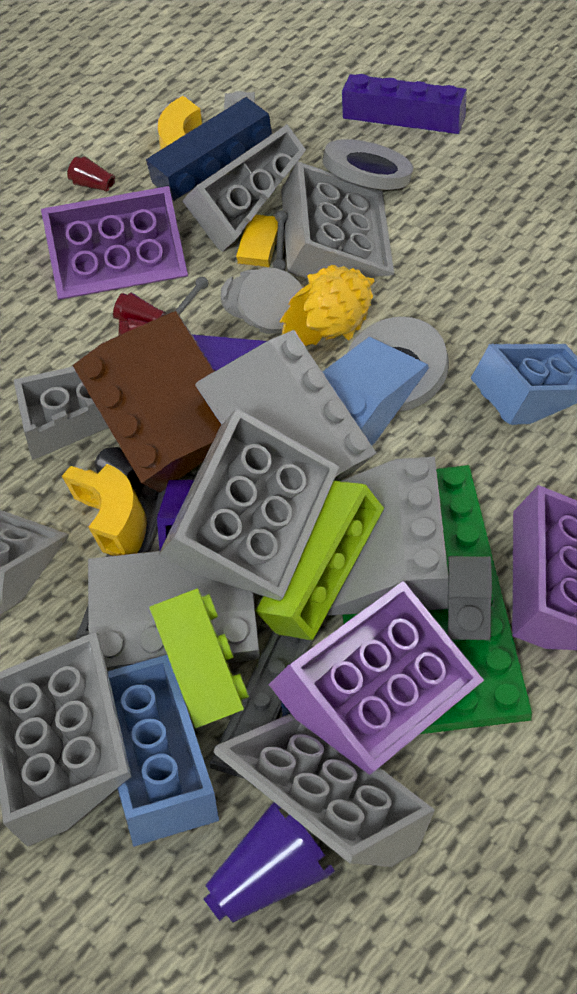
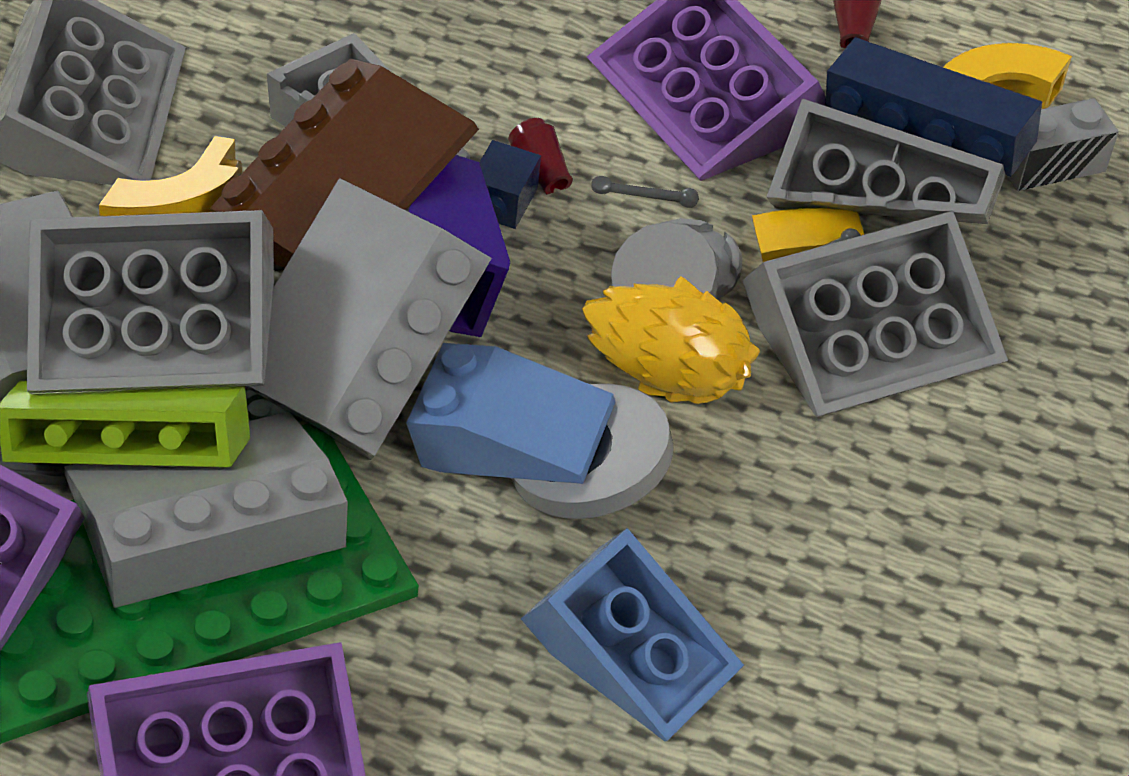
camera: 60 degrees right, 0 degrees up
(136, 308) = (584, 138): dark red cone -> none
(367, 164) = (1039, 317): light grey piece -> none
(469, 597) = (120, 596): dark grey brick -> none

